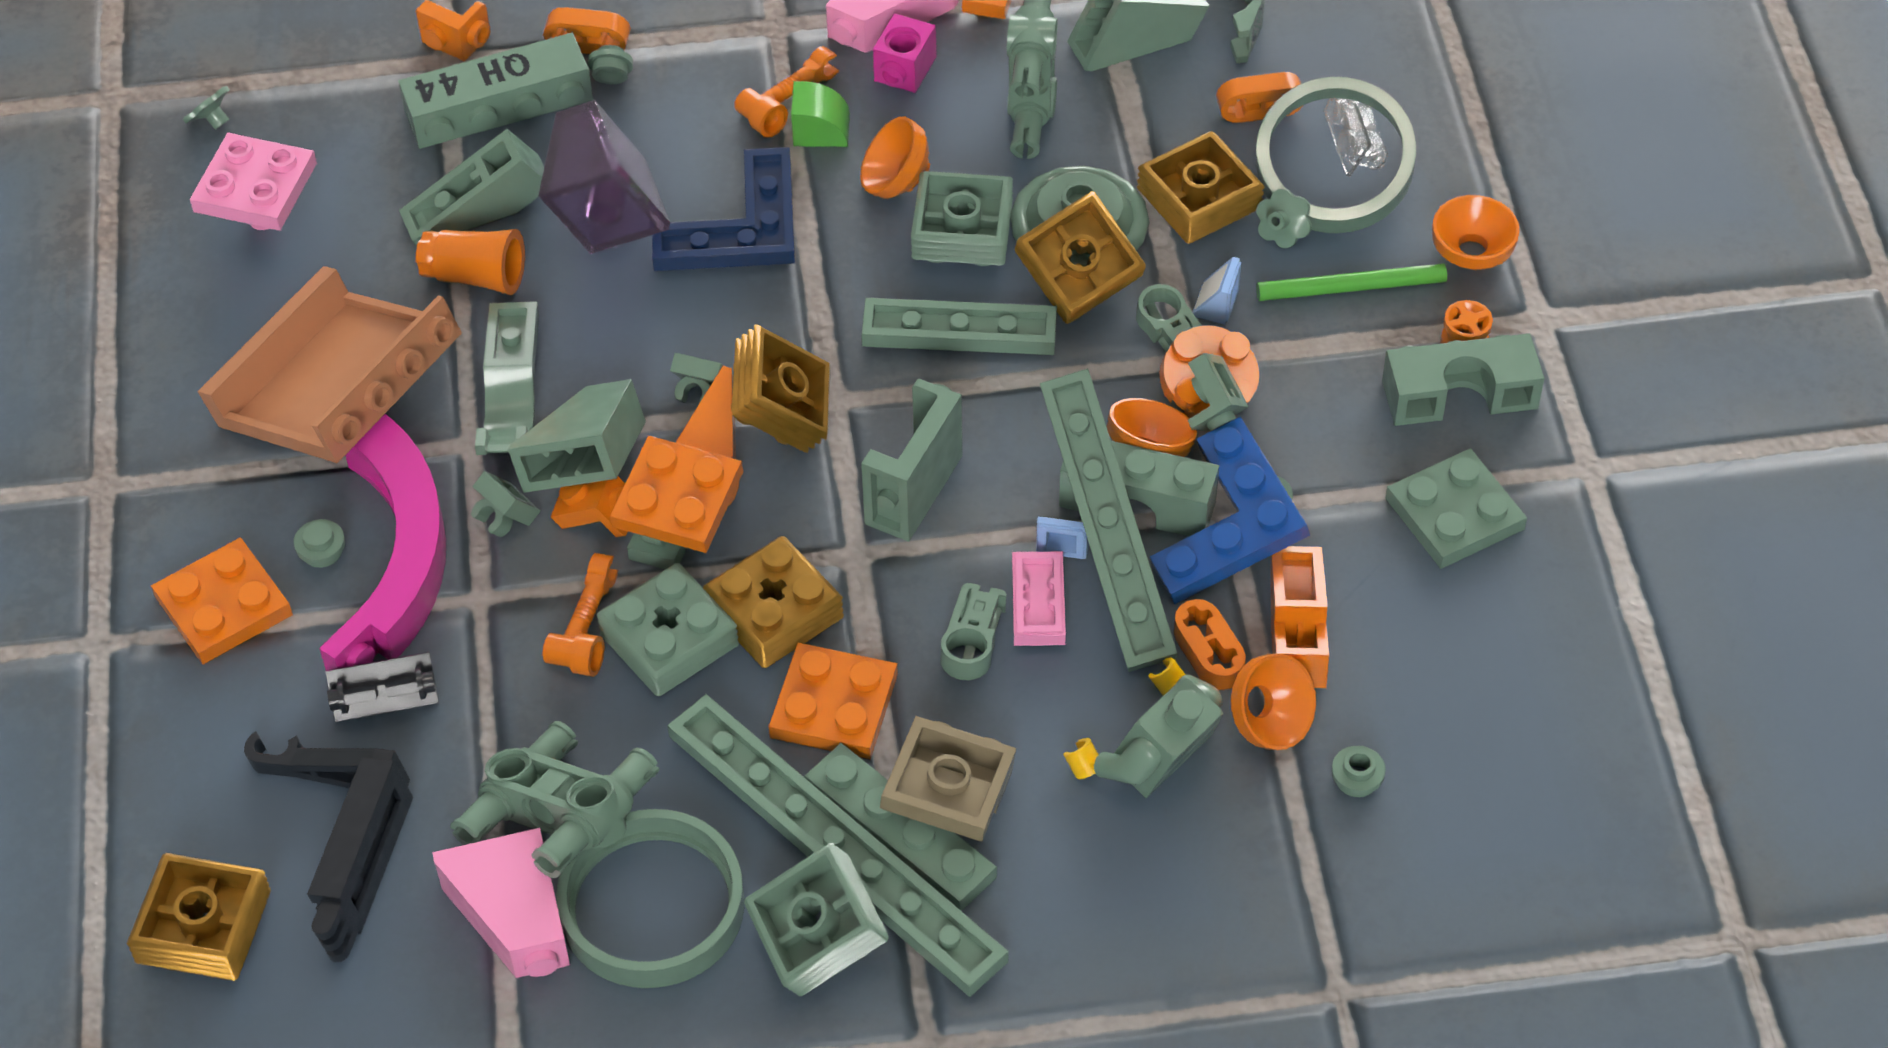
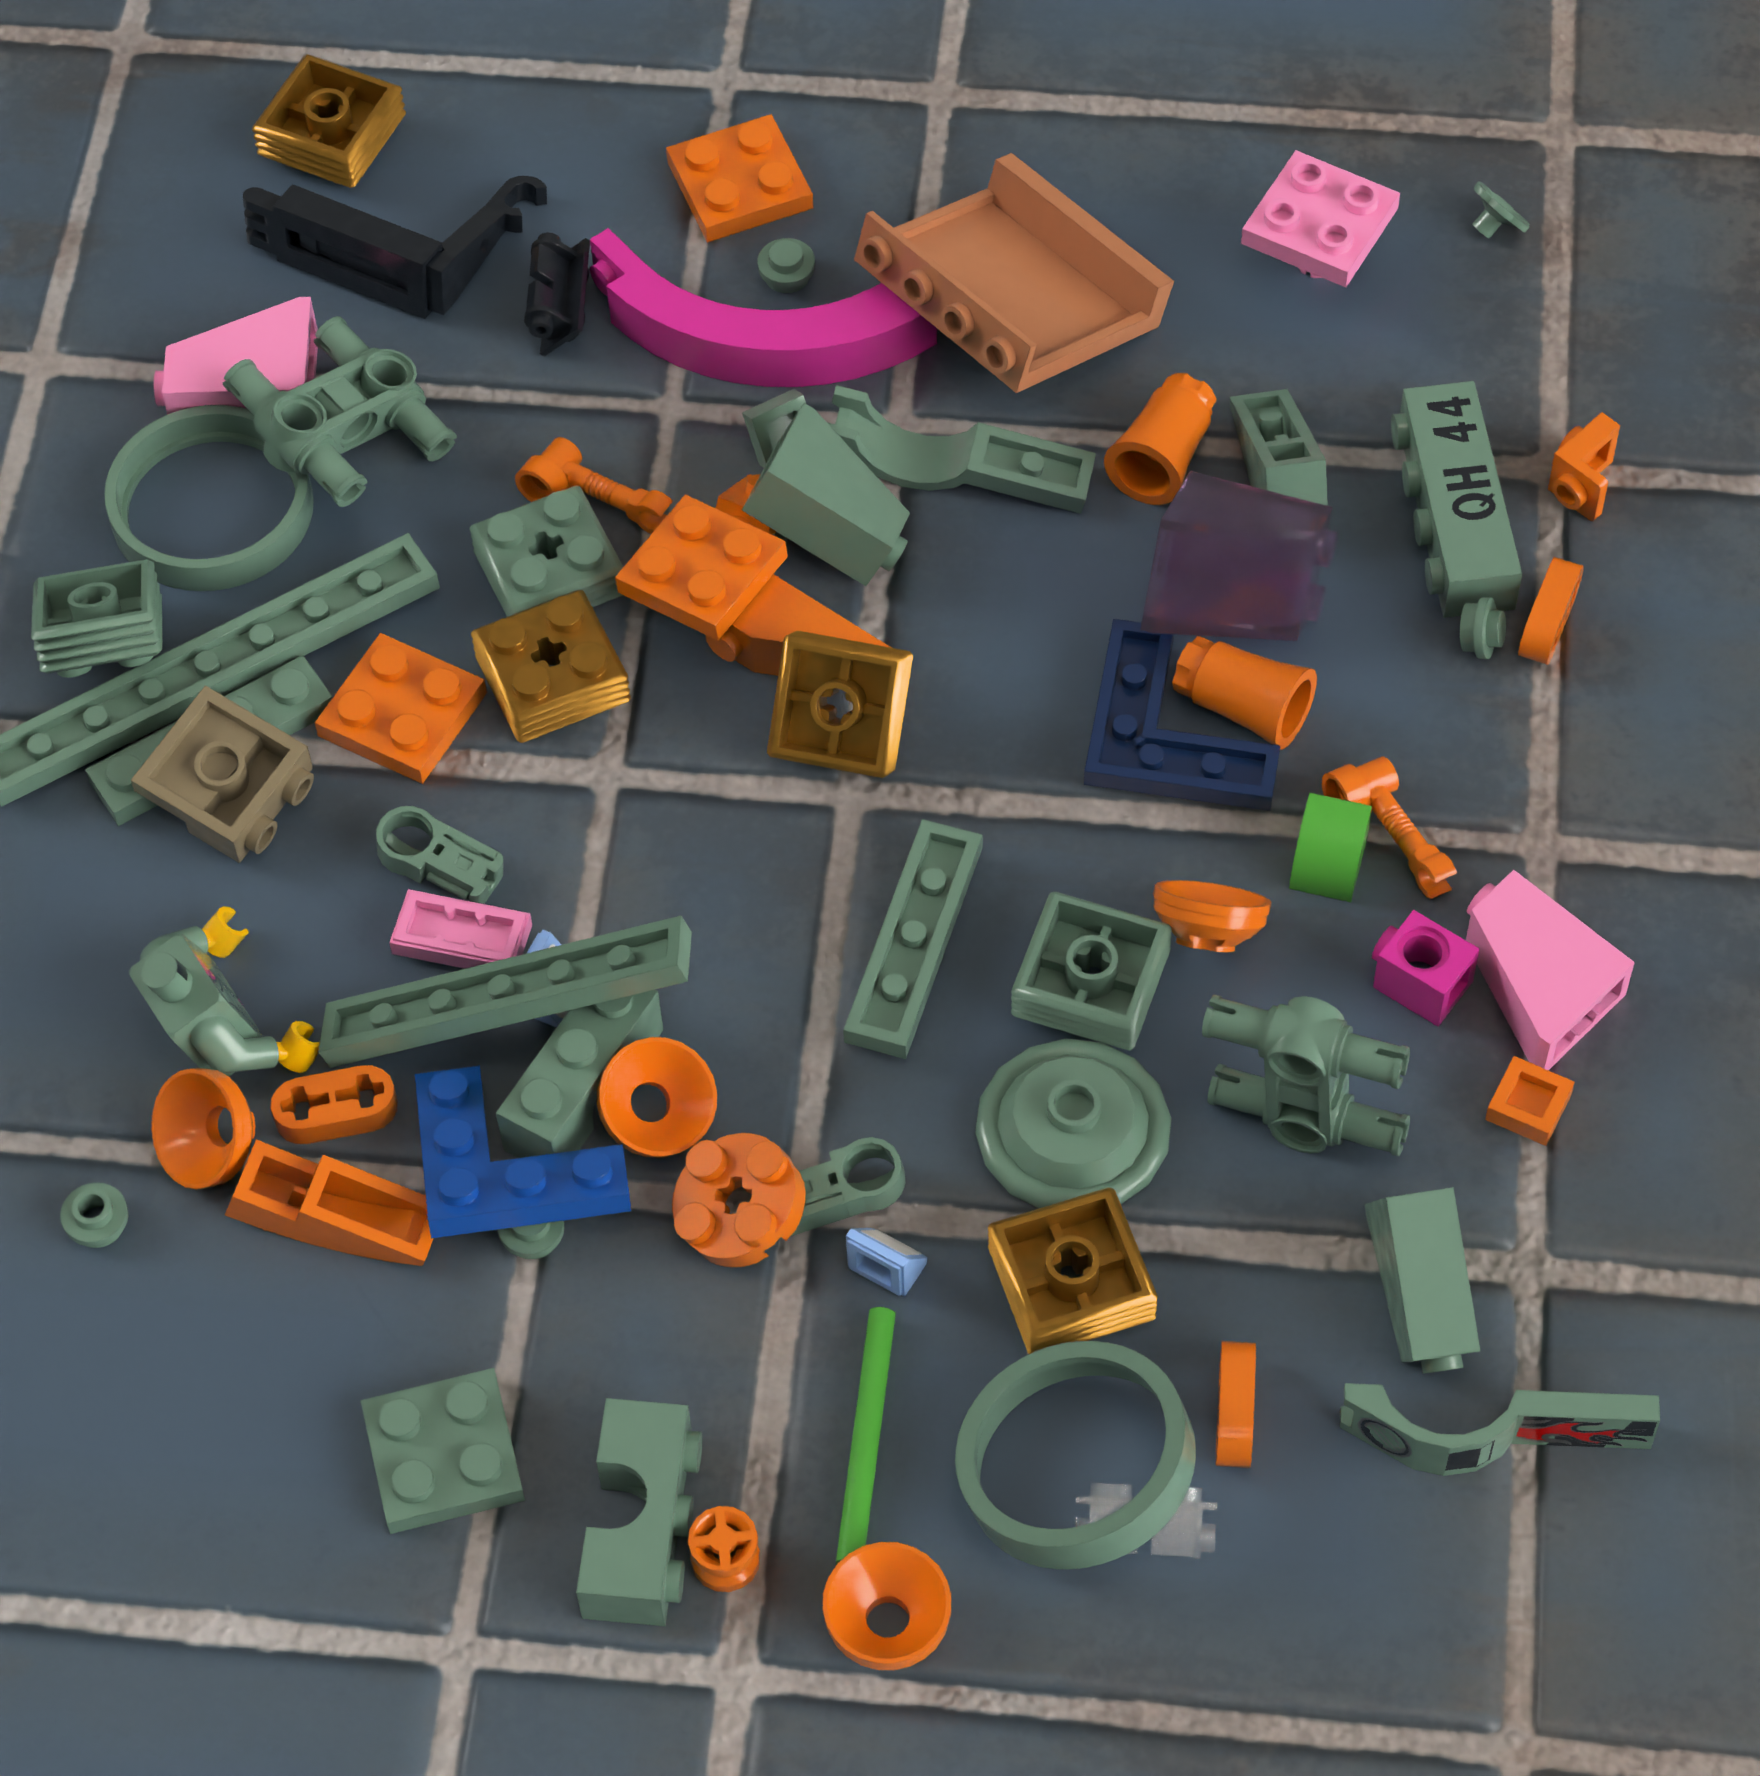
camera: 105 degrees right, 5 degrees up
(693, 373) = (923, 635): sand green tile -> none
(699, 171) = (1247, 688): none -> orange plant
(903, 489) = (687, 843): sand green panel -> none
(1086, 228) = (961, 1076): pearl gold brick -> none
(1218, 388) = (676, 1173): sand green bracket -> none
(1292, 215) = (987, 1363): sand green plant -> none

